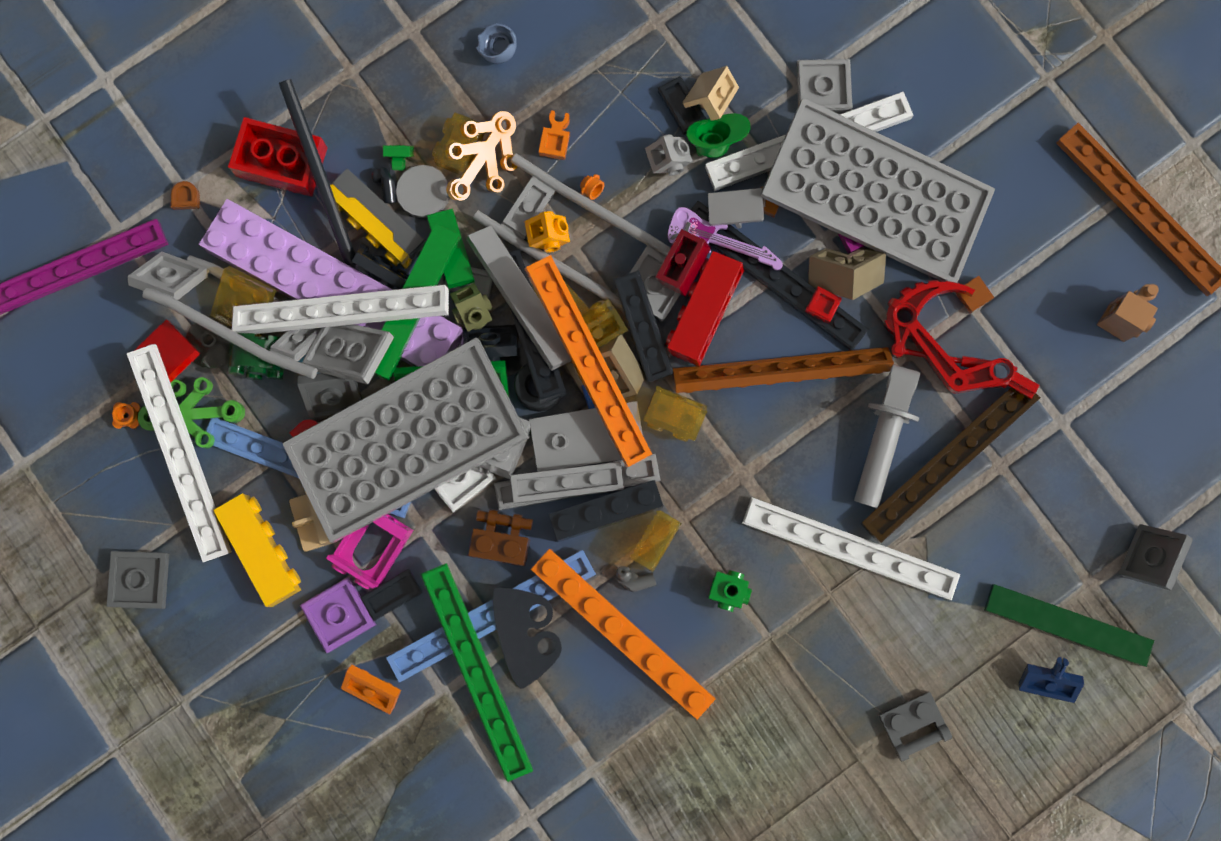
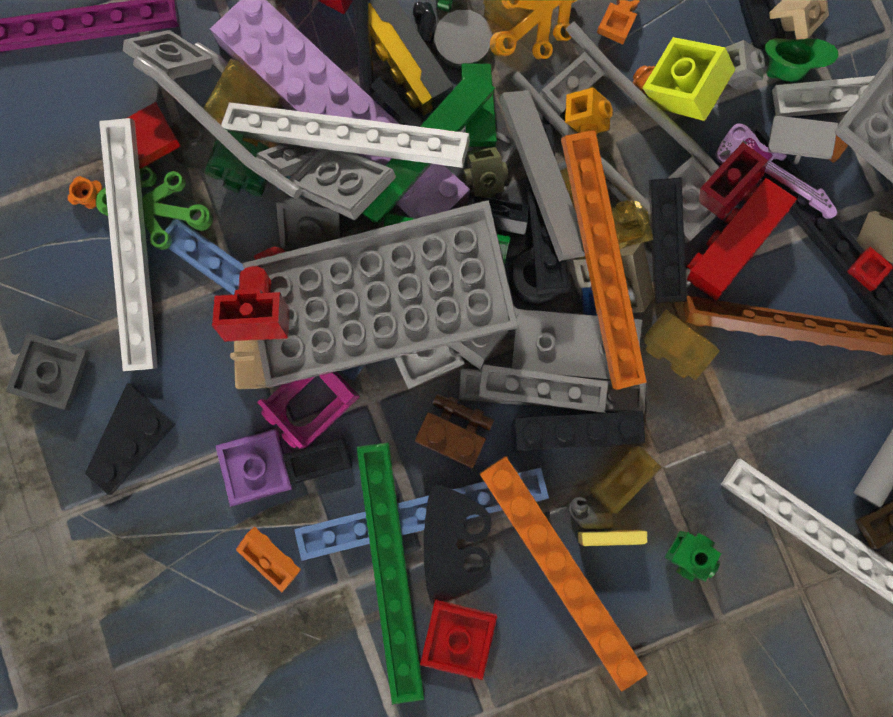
camera: 10 degrees right, 0 degrees up
(222, 620) = (127, 440): none -> black wing
(257, 549) = (186, 373): yellow brick -> none
(302, 482) = (252, 310): none -> red brick
(549, 713) = (458, 639): none -> red tile
(626, 180) = (689, 78): none -> neon yellow brick
(658, 593) = (608, 538): none -> light yellow tile

